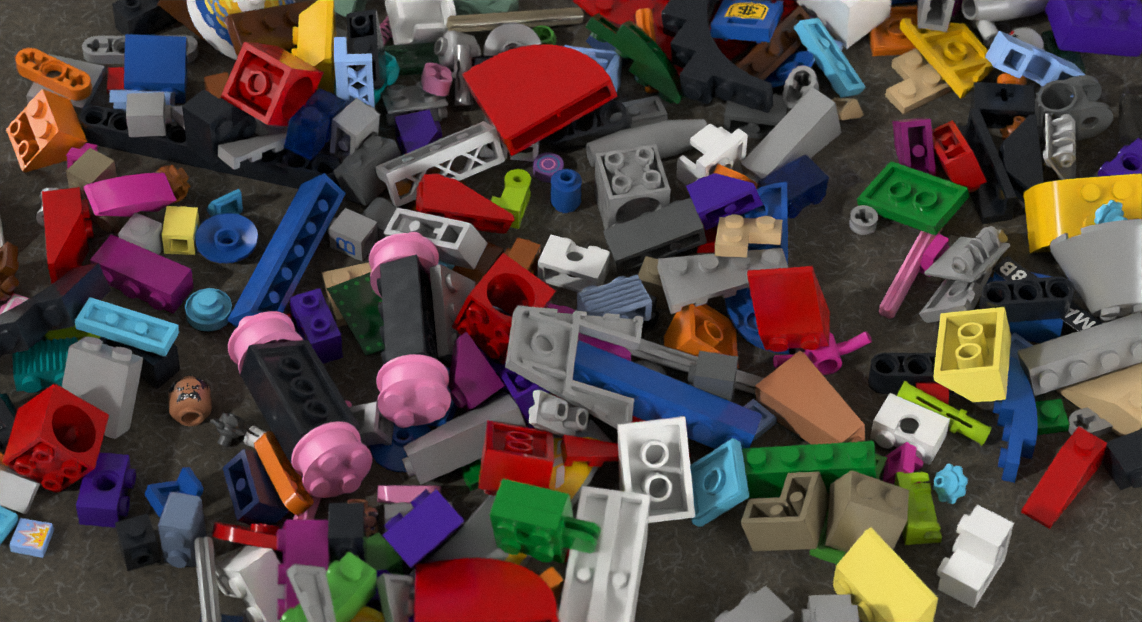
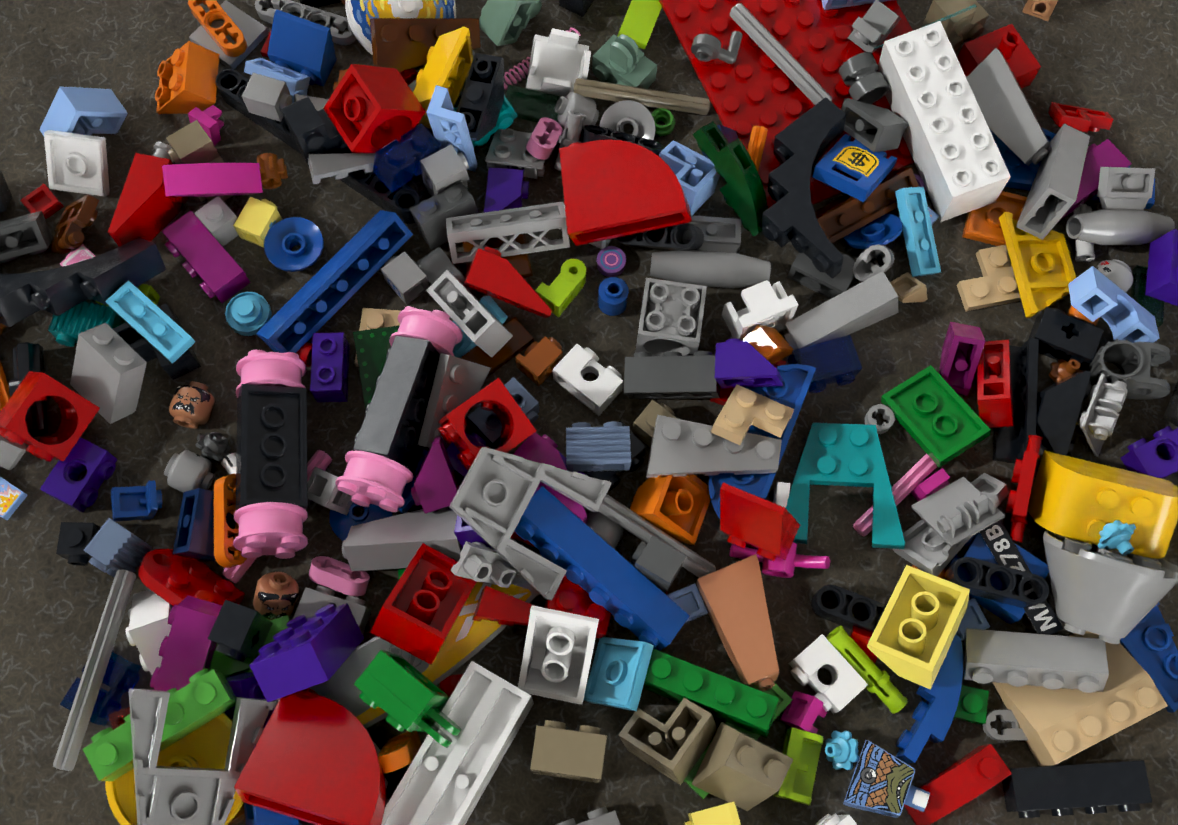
camera: 20 degrees right, 20 degrees up
(214, 453) = (189, 471): none -> light grey head
(226, 204) = (309, 209): dark azure slope -> none
(703, 547) = (568, 752): none -> dark tan brick
(857, 254) = (846, 457): none -> teal wing
(1001, 490) = (883, 784): none -> torso
(1016, 226) = (1019, 499): none -> red plate

